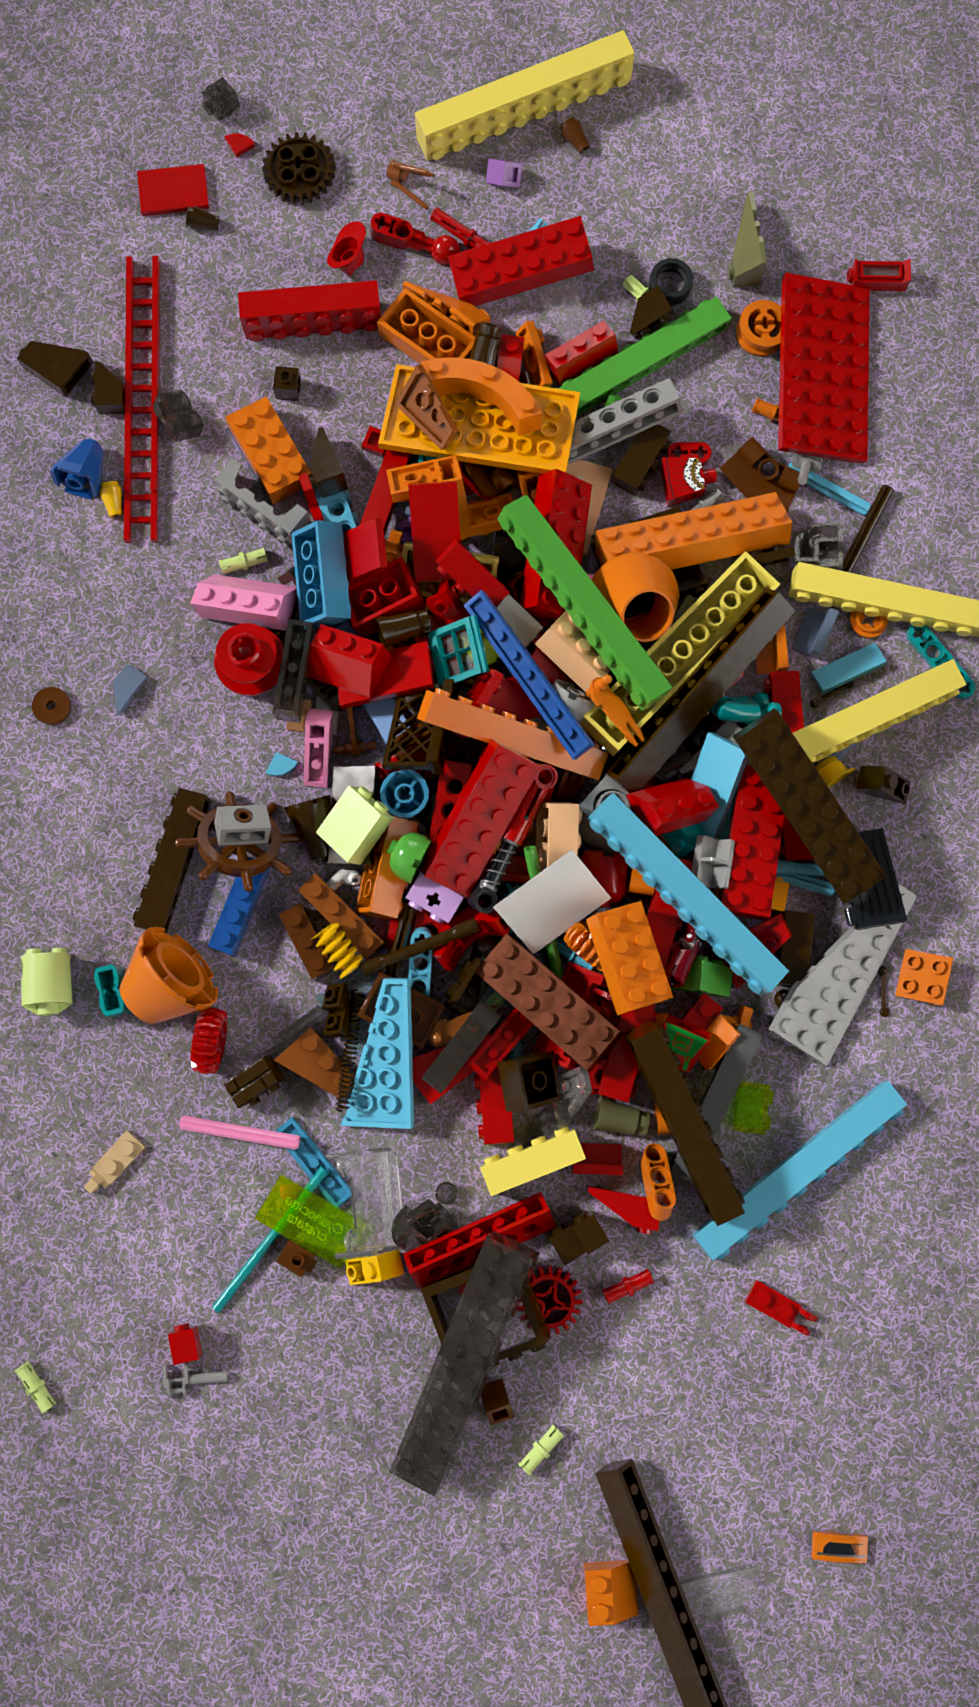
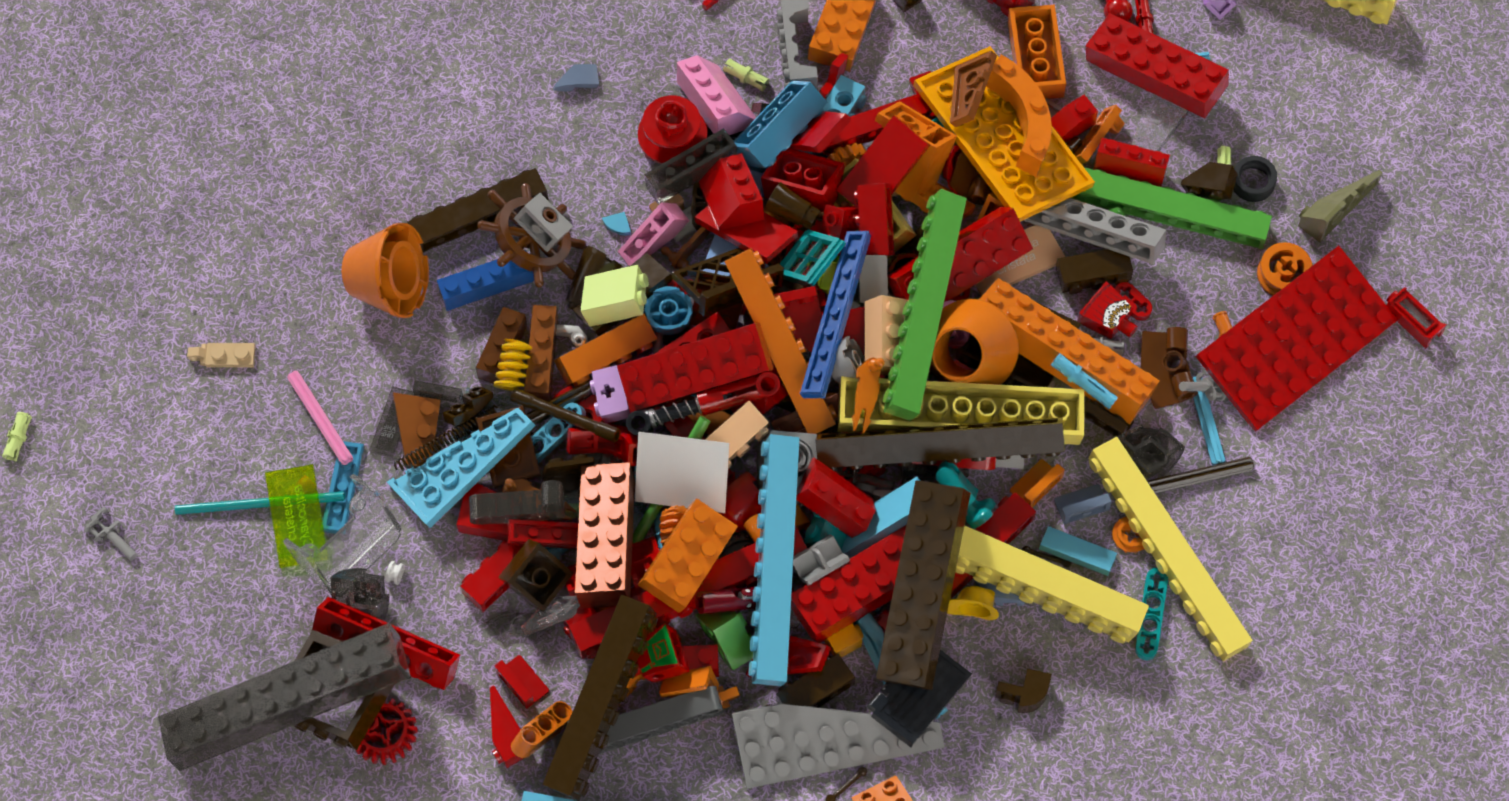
camera: 50 degrees right, 15 degrees down
(44, 698) = (522, 51): reddish brown piece -> none
(46, 981) = (315, 199): yellowish green cylinder -> none
(108, 983) = (350, 235): teal brick -> none
(185, 1344) = (133, 506): red brick -> none
(209, 1040) = (368, 338): red gear -> none
(254, 1081) = (365, 395): dark brown brick -> none
(297, 1259) = (261, 531): reddish brown brick -> none
(325, 468) = (866, 65): dark brown slope -> none
(374, 1268) = (301, 589): yellow slope -> none
(408, 855) = (623, 346): bright green cylinder -> none
(424, 1182) = (394, 572): none -> white bush
(440, 1198) = (400, 587): clear smoke bush -> none
(460, 312) = (1076, 60): orange wedge -> none
(486, 344) = (1064, 91): dark brown plant -> none
(497, 1402) = (274, 757): reddish brown brick -> none
(533, 1161) = (478, 628): light yellow brick -> none
(574, 134) = (1300, 20): reddish brown cone -> none
(578, 1237) = (450, 710): dark brown brick -> none
(620, 1118) = (566, 667): olive plant -> none
(627, 1286) = (444, 780): red pin -> none
(730, 546) = (1084, 381): none -> medium azure pin
(752, 1108) = (662, 758): clear neon green brick -> none
(883, 783) = (1009, 649): dark brown slope -> none
(932, 800) = (1029, 696): none -> dark brown brick

